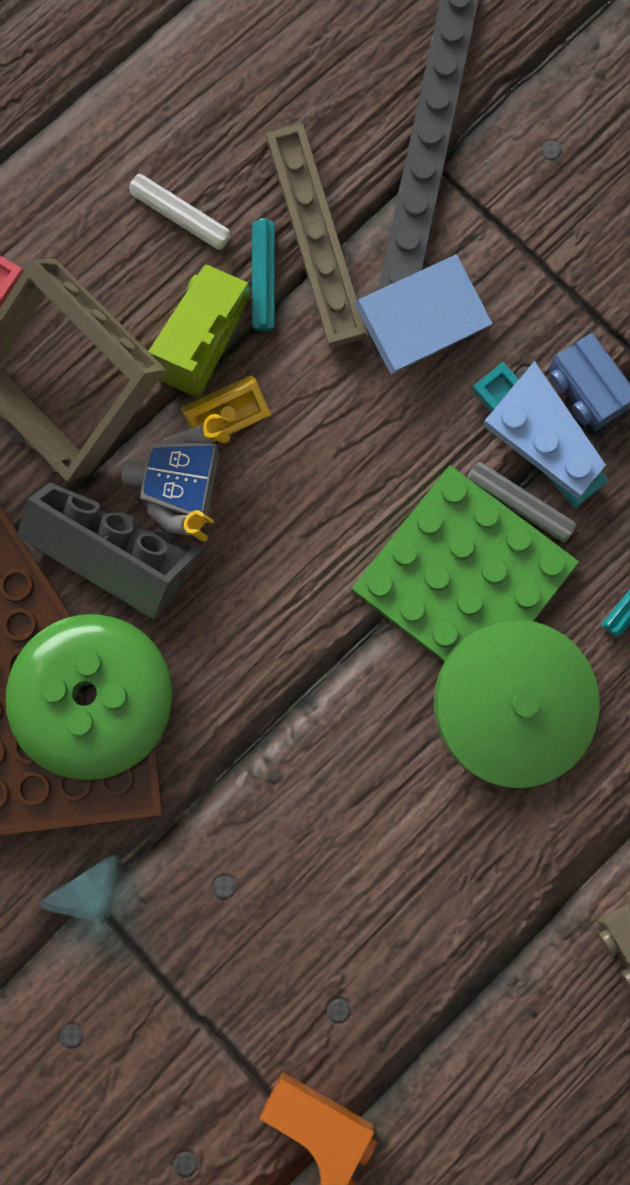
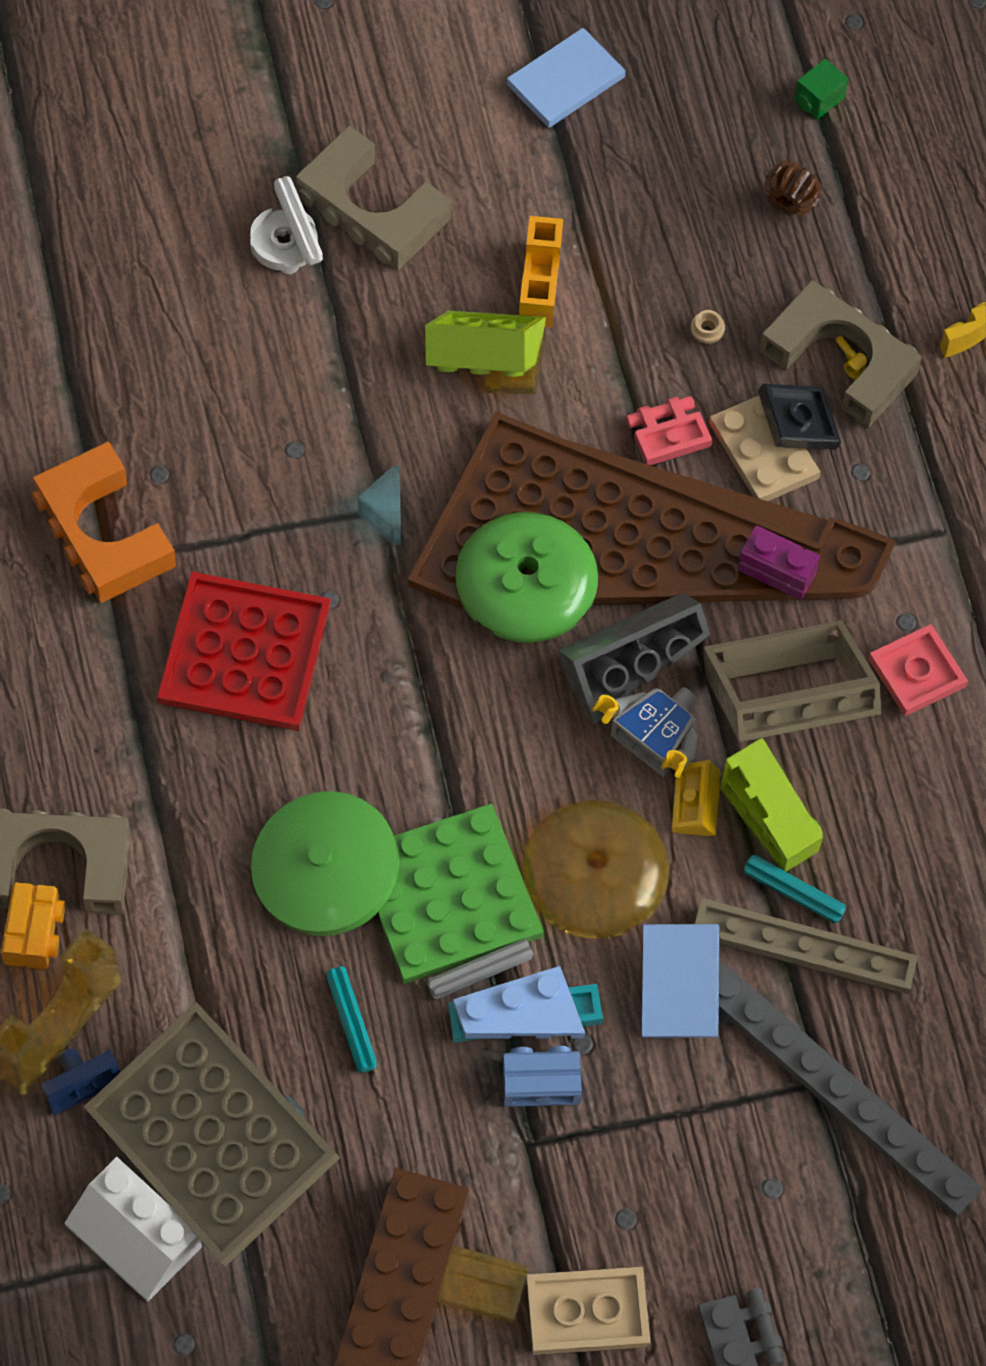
camera: 115 degrees right, 15 degrees down
(179, 211) = (890, 857): white axle -> none
(339, 934) = (244, 651): none -> red plate
(346, 497) = (590, 899): none -> clear yellow brick

